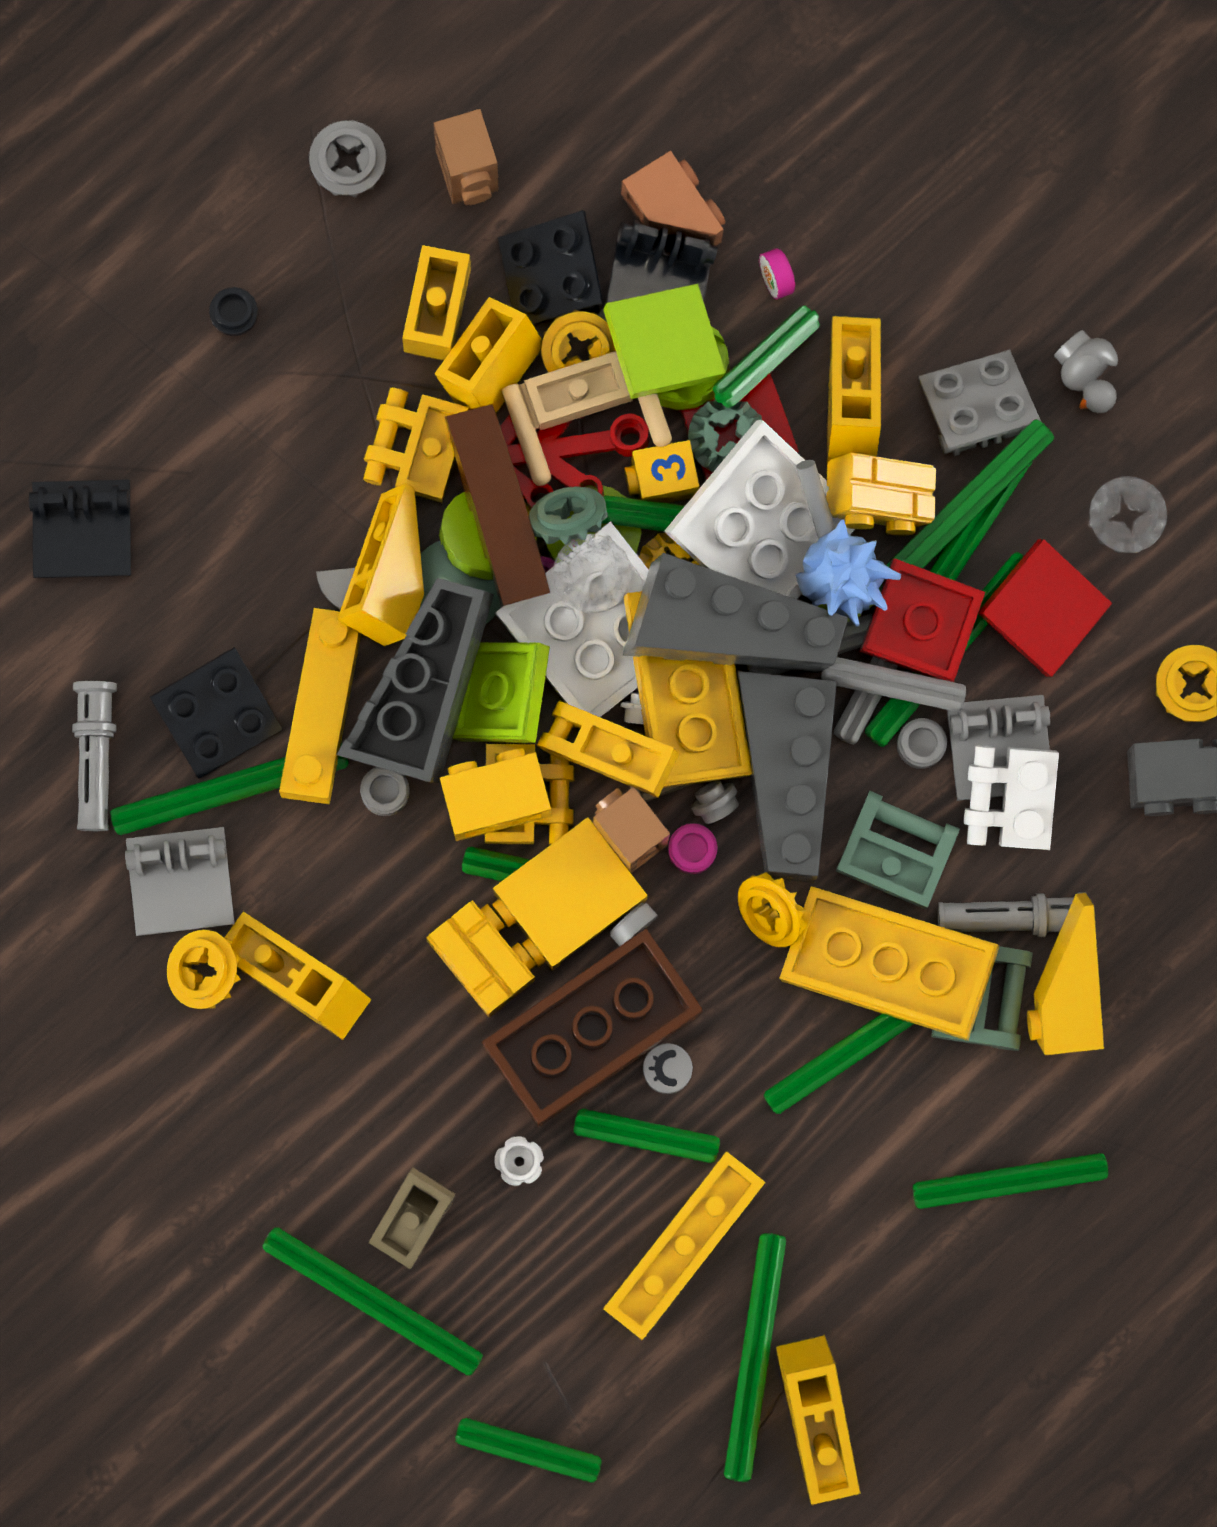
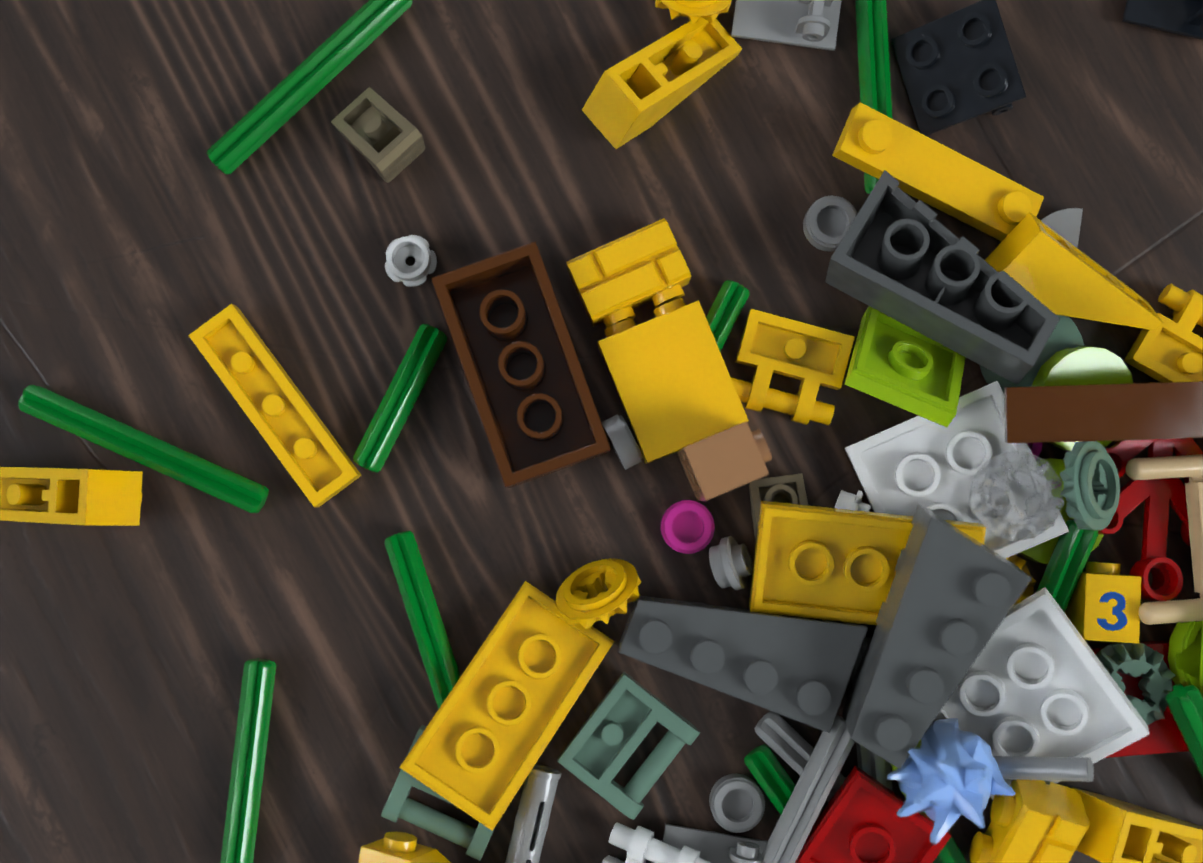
camera: 115 degrees right, 5 degrees up
(495, 794) = (798, 326): yellow brick -> none
(528, 1450) = (117, 194): green axle -> none
(609, 749) = (816, 463): yellow plate -> none
(667, 1068) = (462, 438): light grey tile -> none

